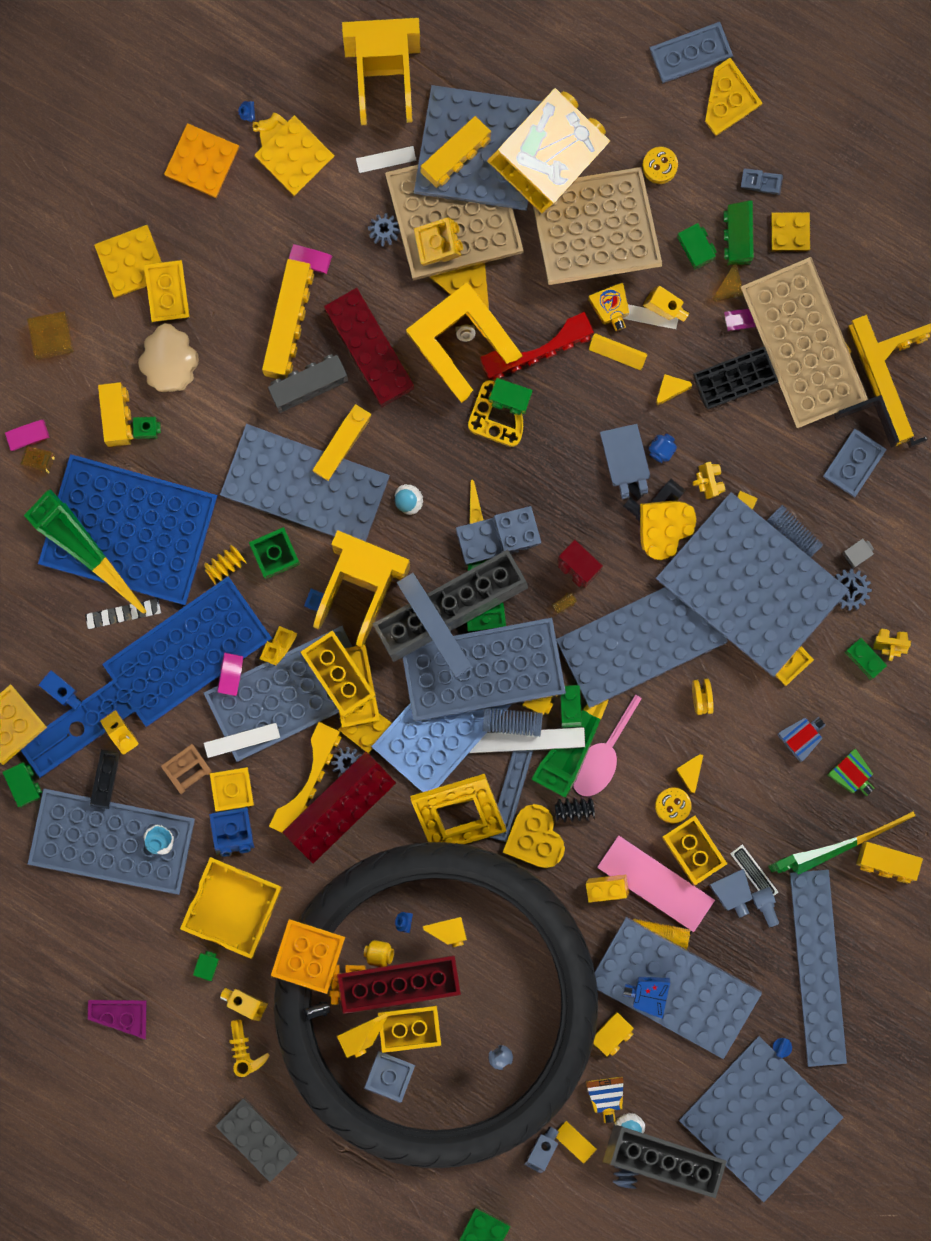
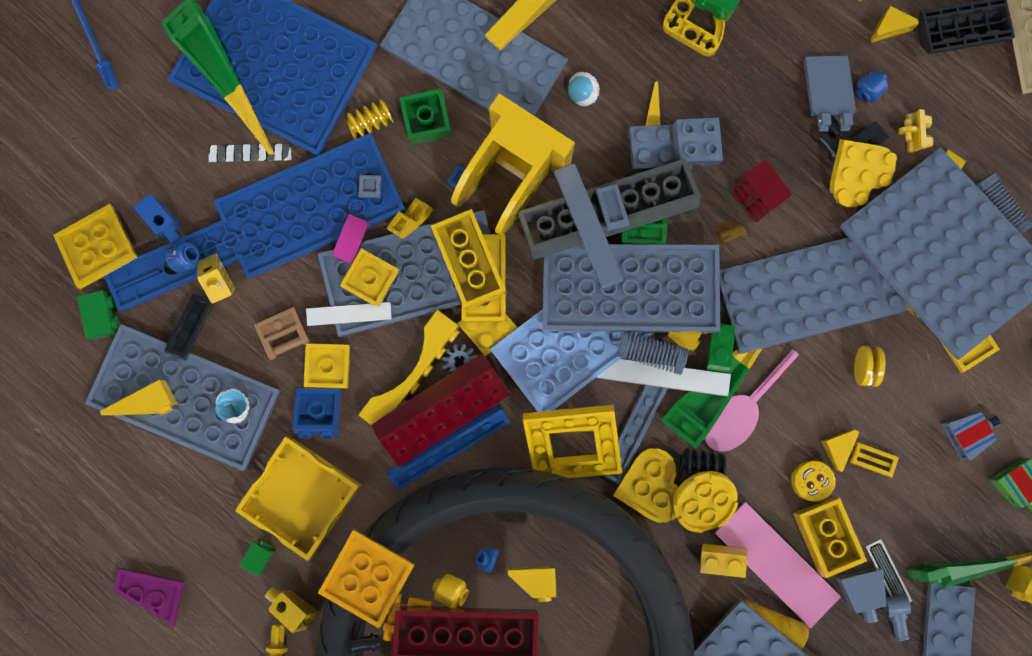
camera: 15 degrees right, 0 degrees up
(84, 850) = (152, 399): none -> yellow slope
(88, 719) = (182, 257): none -> blue head
(238, 624) = (370, 186): none -> sand blue tile
(254, 705) = (369, 278): none -> yellow plate
(352, 838) = (448, 447): none -> blue plate
(452, 605) = (612, 207): none -> sand blue tile
(582, 841) = (705, 501): none -> yellow tile
(739, 779) = (856, 453): none -> yellow tile

